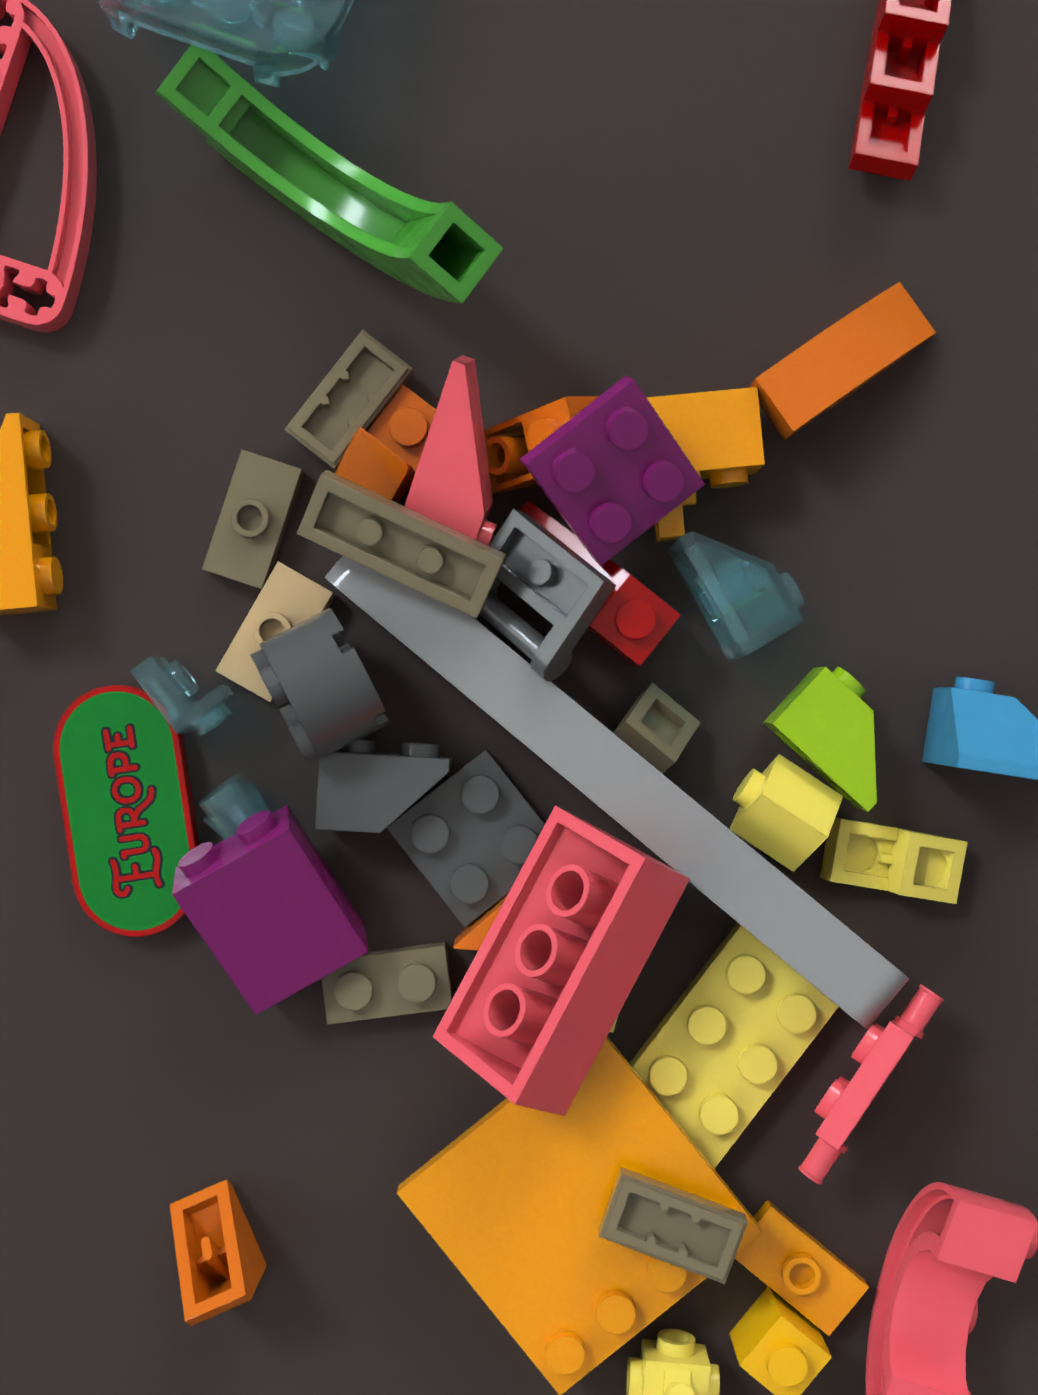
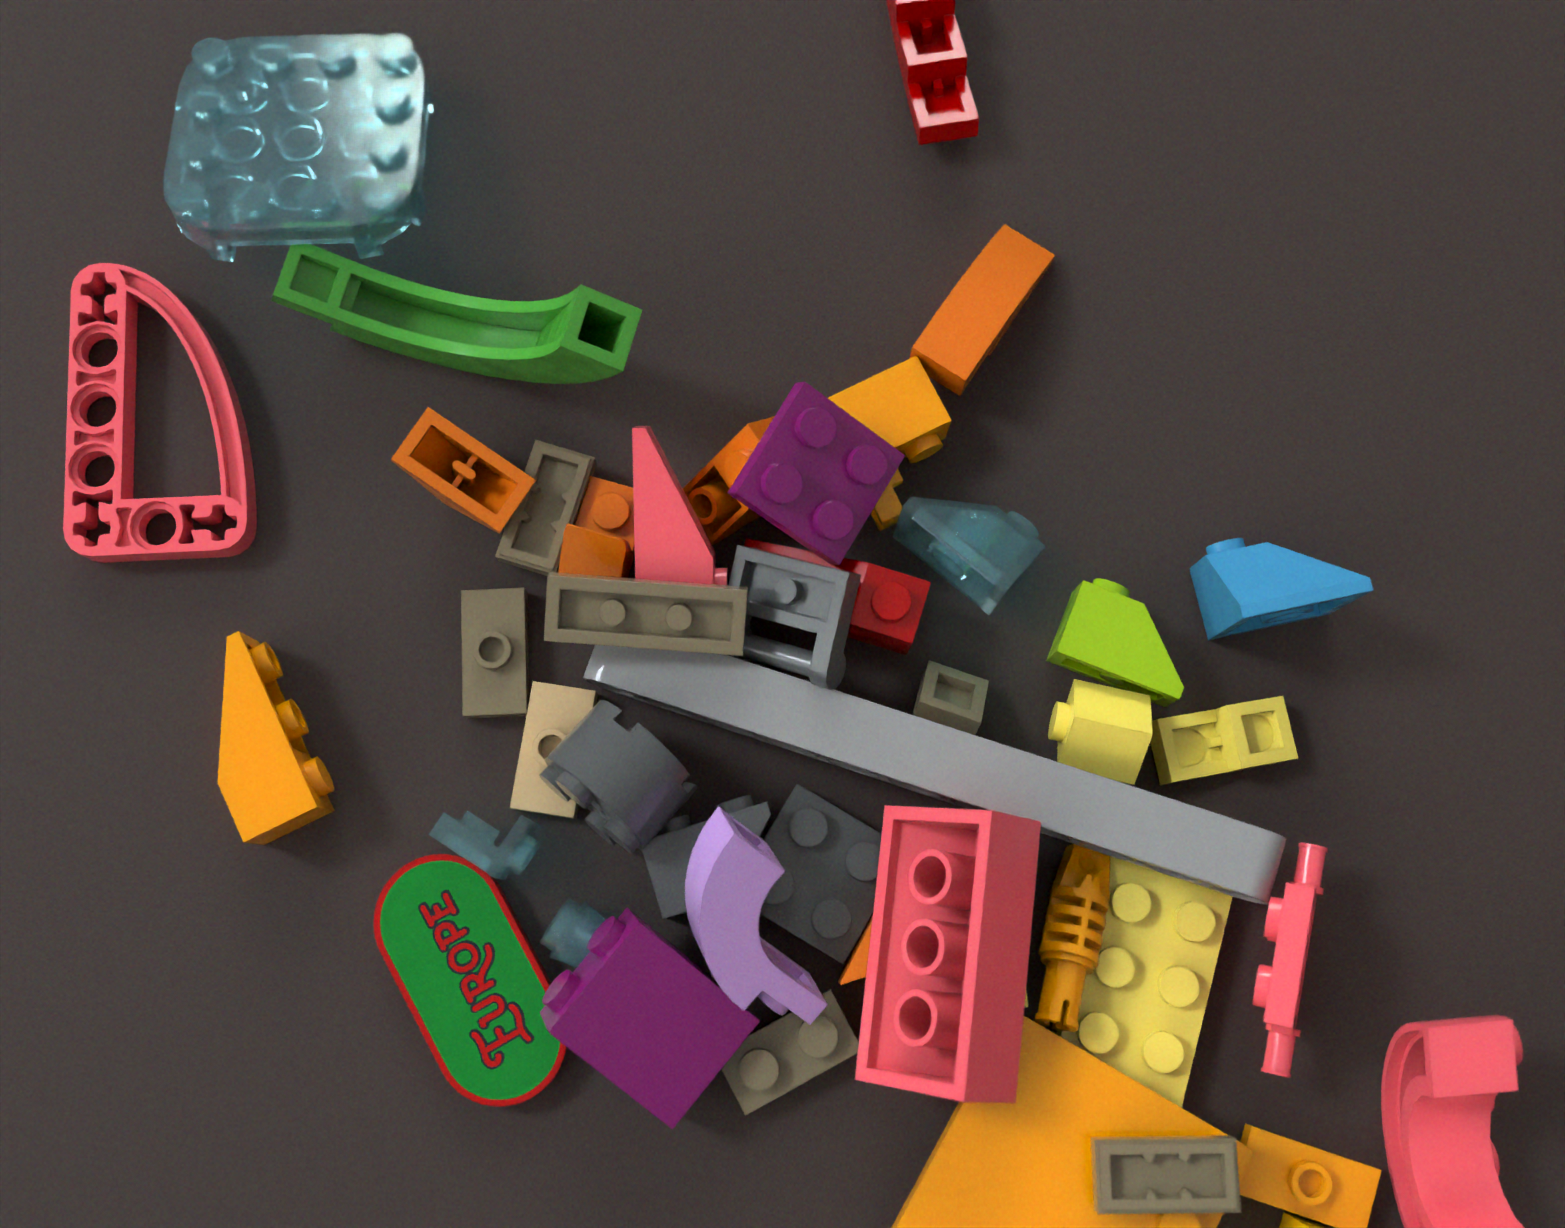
camera: 25 degrees left, 10 degrees down
(281, 336) = (462, 471): none -> orange slope
(377, 830) = (723, 901): none -> lavender arch
(681, 982) = (1072, 934): none -> light orange hinge

